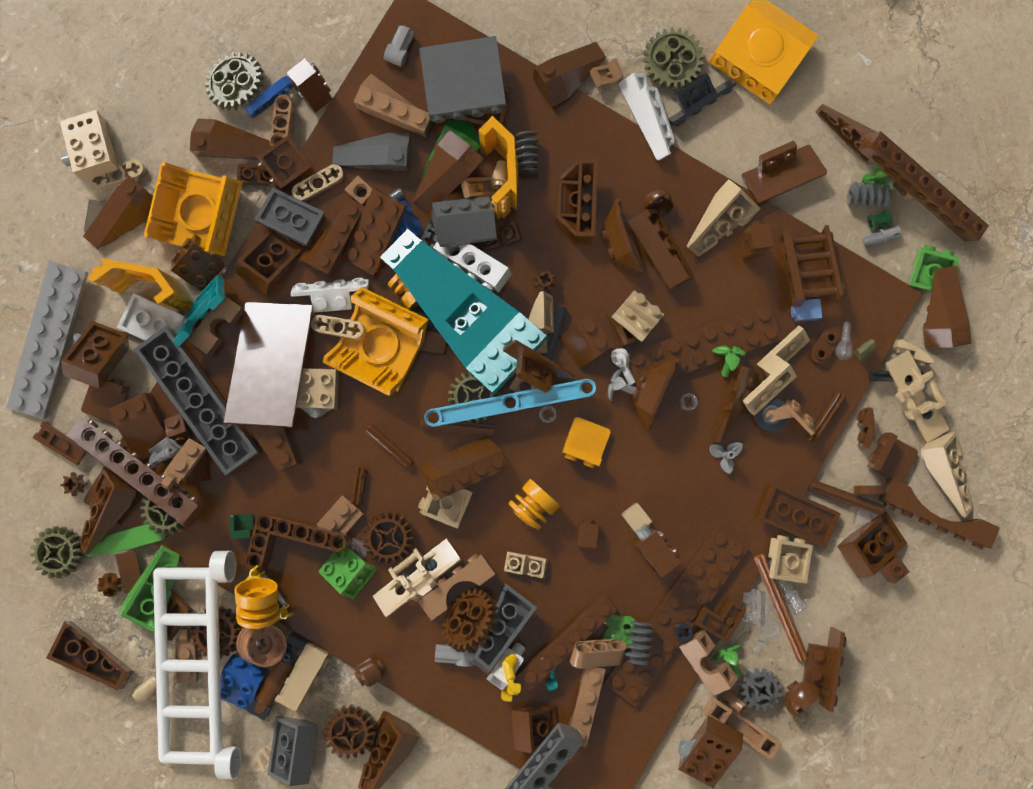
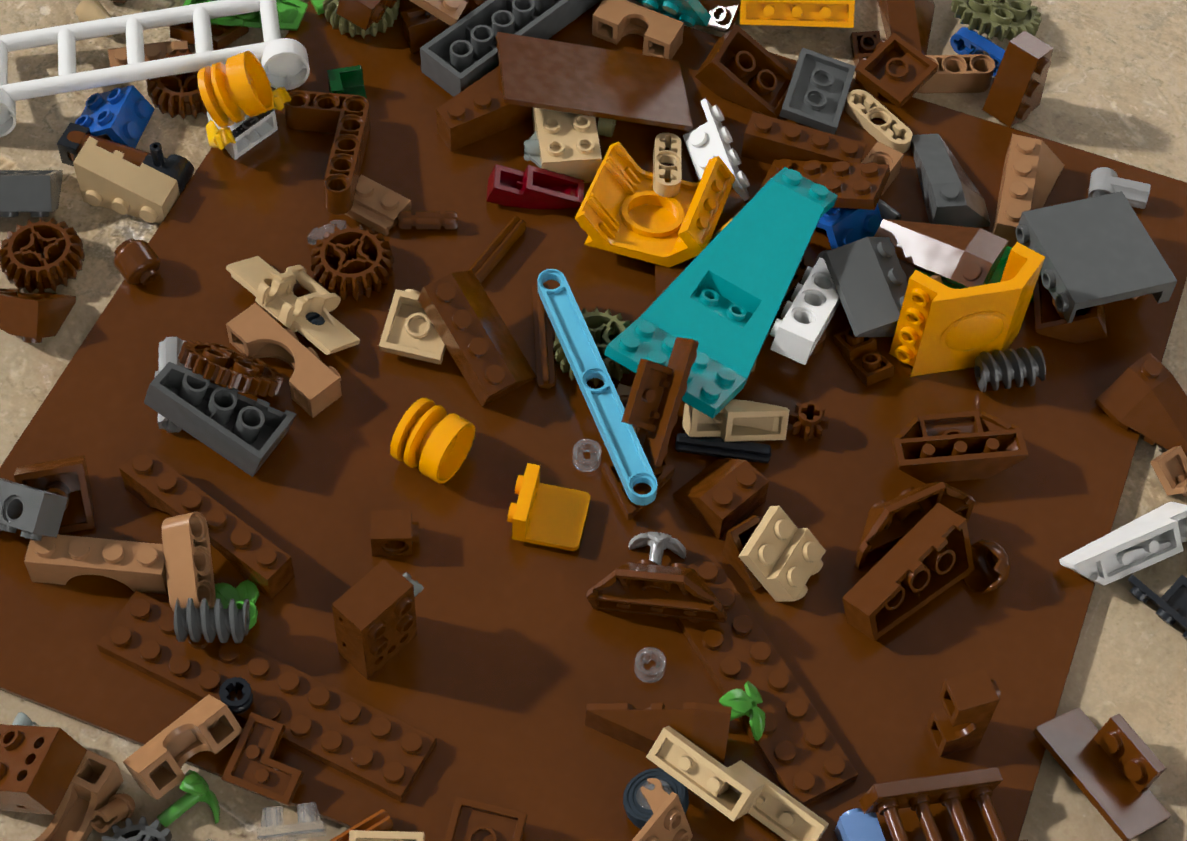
camera: 80 degrees right, 30 degrees down
(270, 650) = (164, 108): nougat wheel -> none
(344, 415) = (534, 188): none -> dark red slope
(347, 572) = (289, 220): bright green bracket -> none
(504, 672) = (148, 425): torso -> none
(525, 564) = (330, 455): tan slope -> none
(552, 683) = (132, 518): teal hand -> none
(621, 358) = (704, 546): white plate -> none
(636, 517) = (434, 603): tan brick -> none
(726, 212) = (1022, 678): tan wedge -> none
(732, 450) = (570, 727): light grey plant -> none

